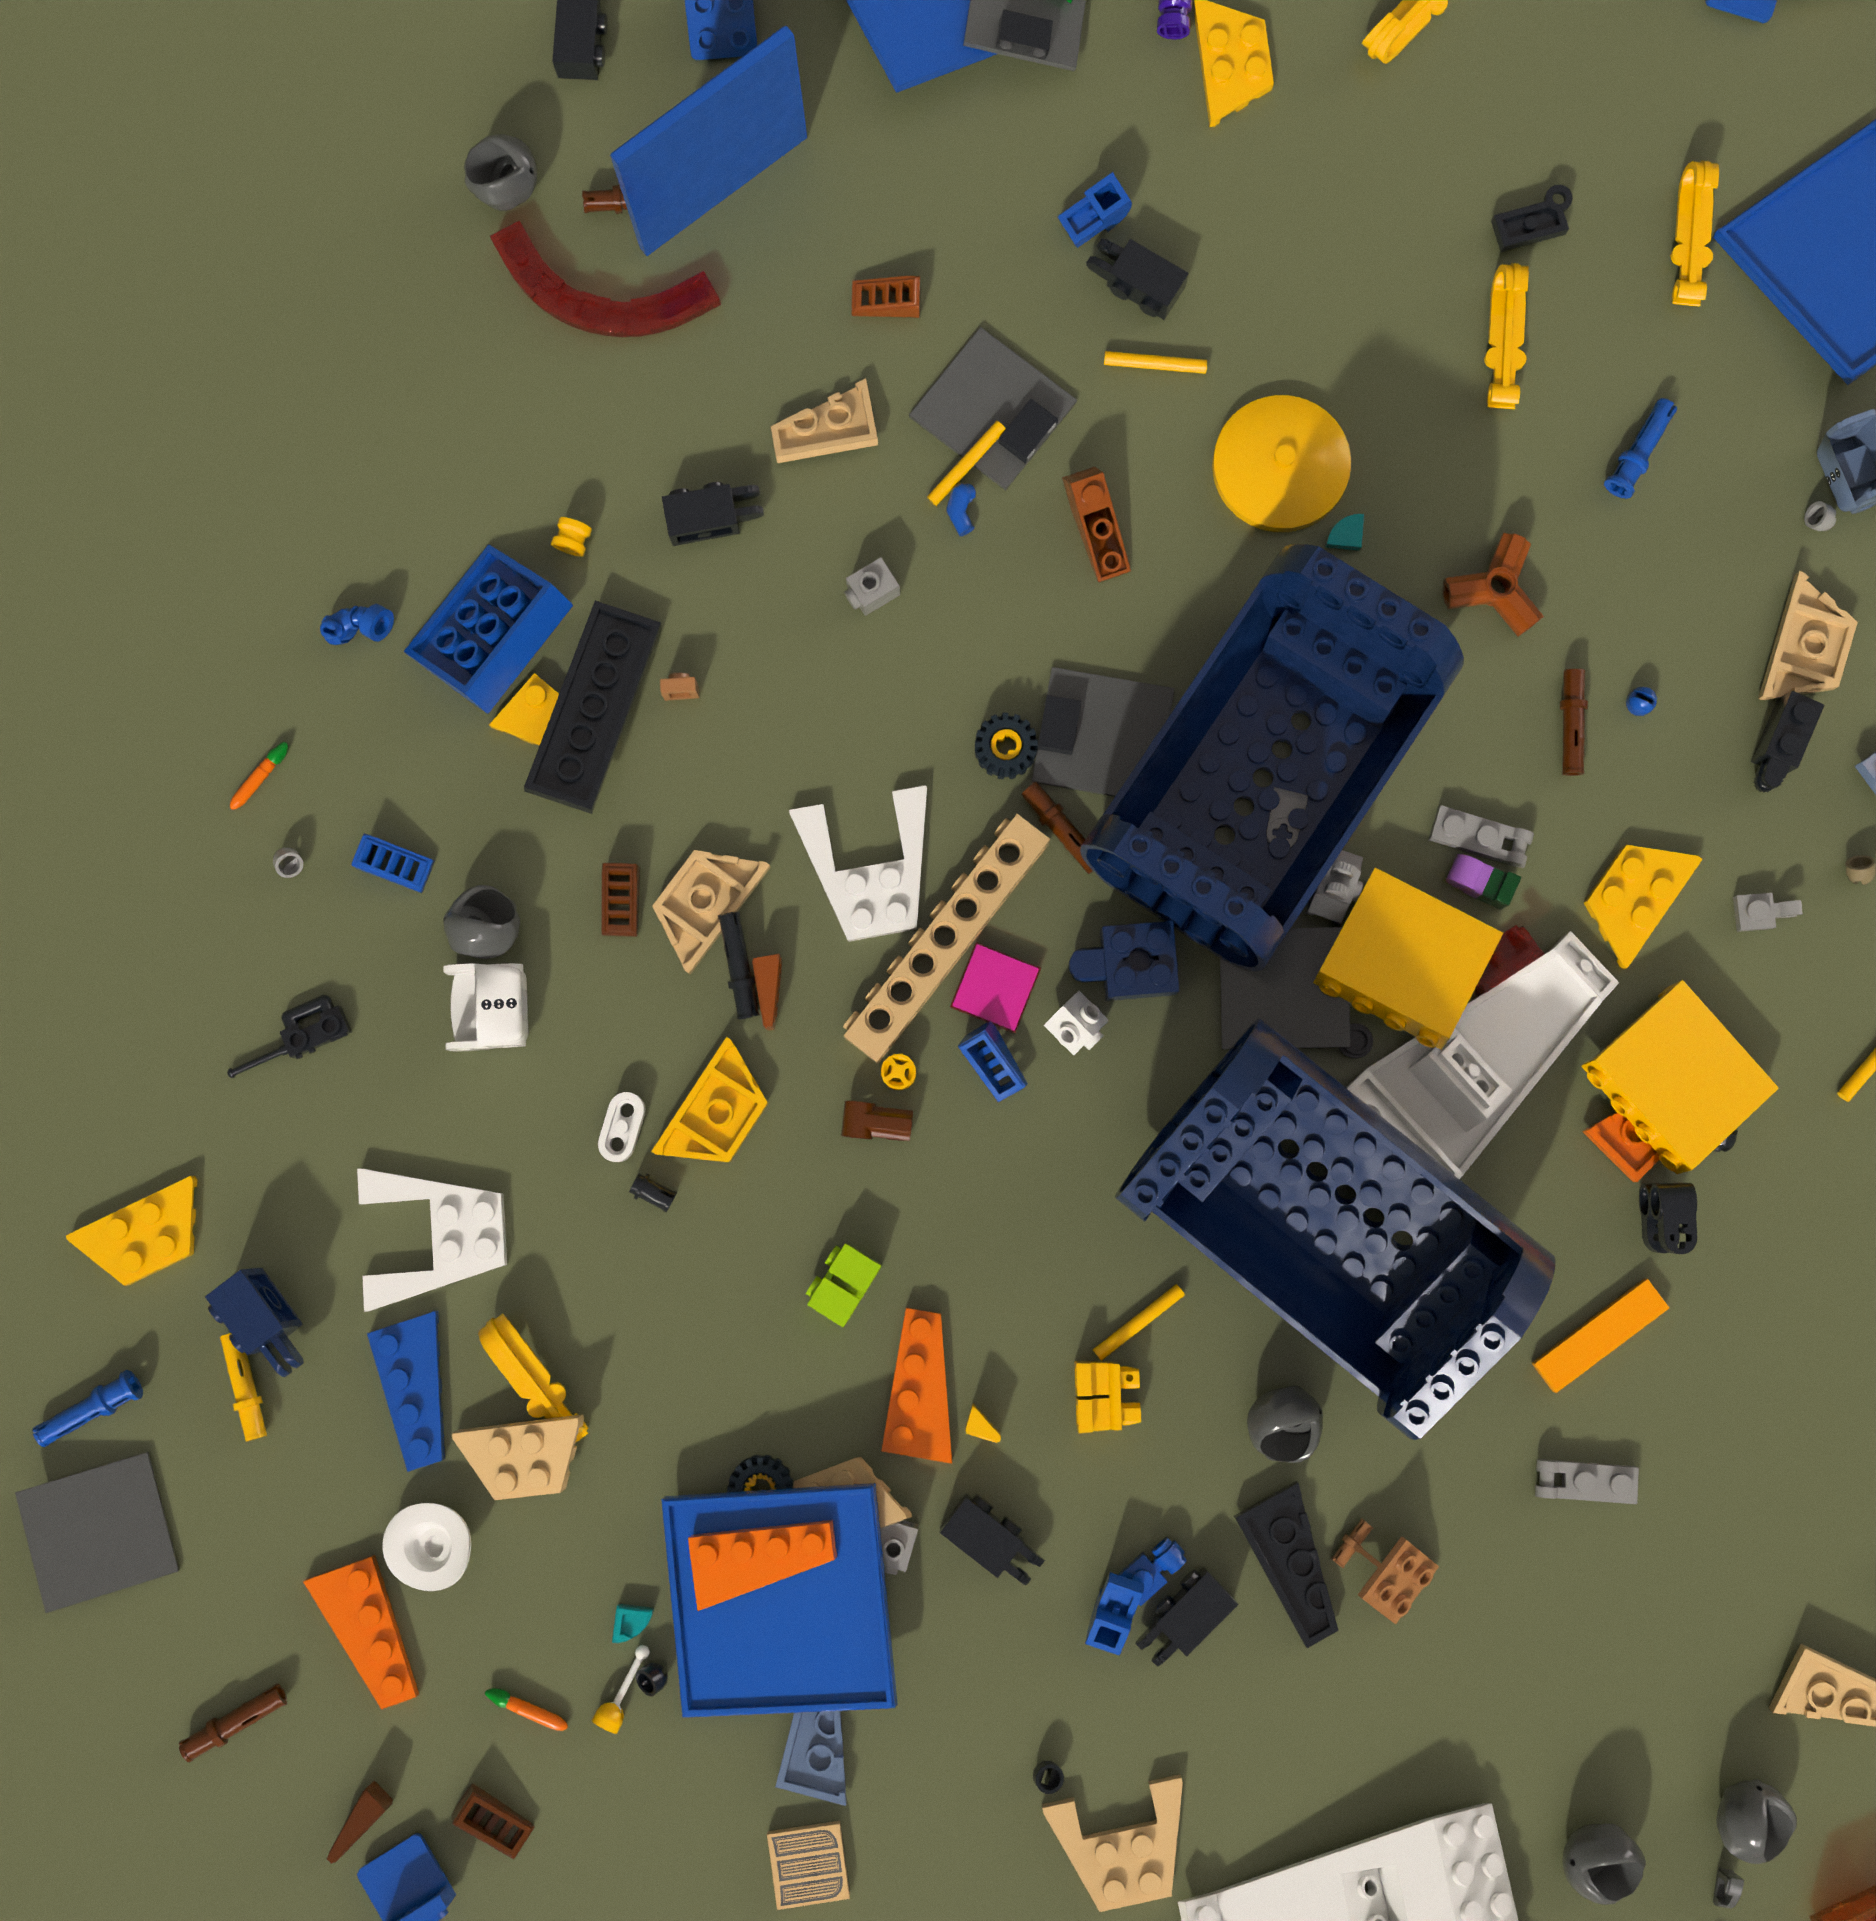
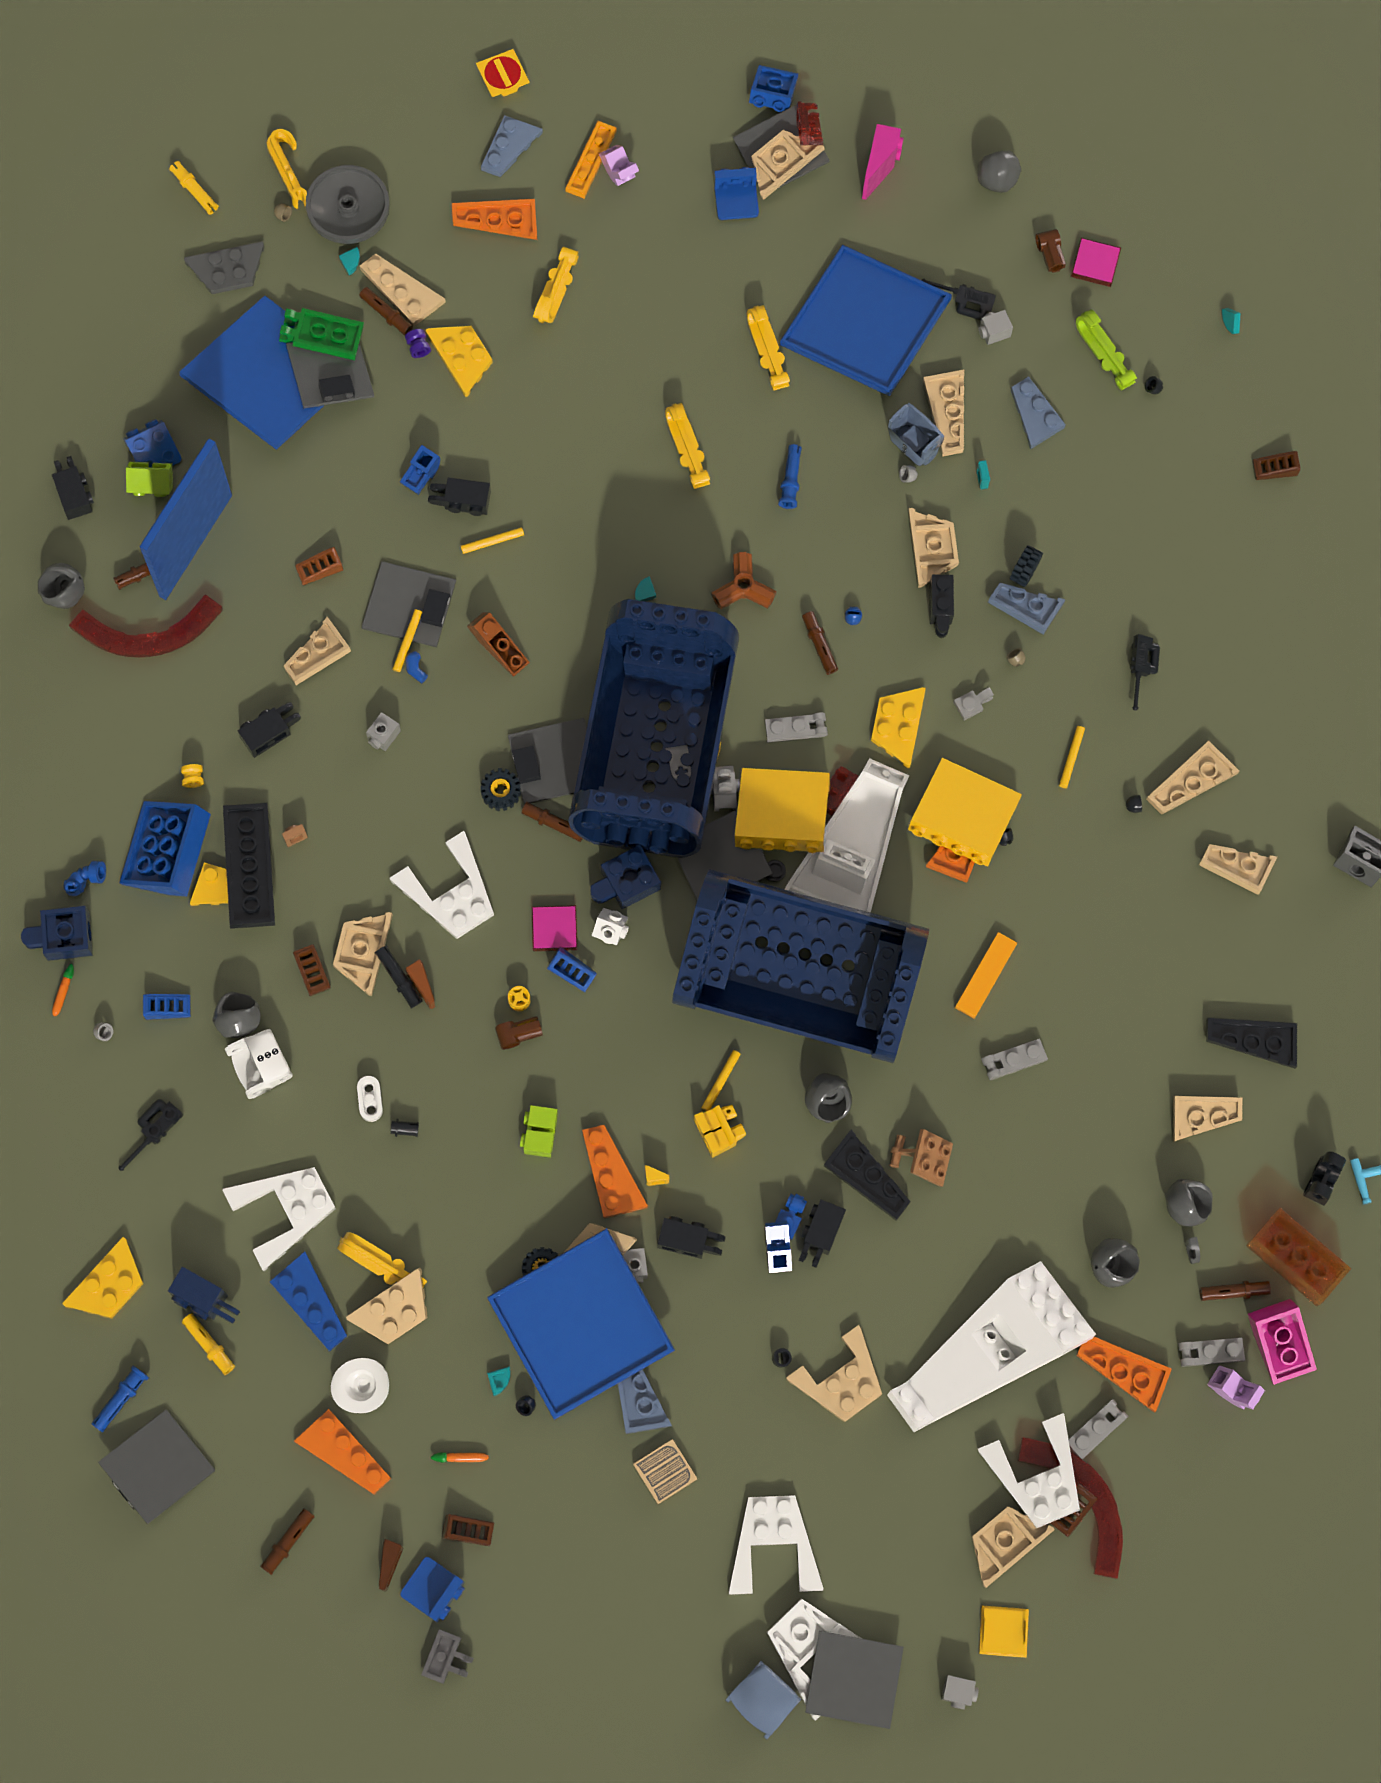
camera: 30 degrees left, 10 degrees down
(287, 693) = (62, 933): none -> dark blue brick
(610, 1714) = (511, 1437): hinge -> none
(688, 61) = (146, 480): none -> lime piece
(716, 1111) = (422, 1066): yellow wing -> none
(748, 1559) = (552, 1306): orange wing -> none
(1014, 833) = (498, 987): tan brick -> none
(1281, 463) = (590, 567): yellow dish -> none
(1483, 881) = (807, 751): leg -> none
(1533, 222) = (674, 377): black hinge -> none
(1668, 1207) = (990, 889): black piece -> none

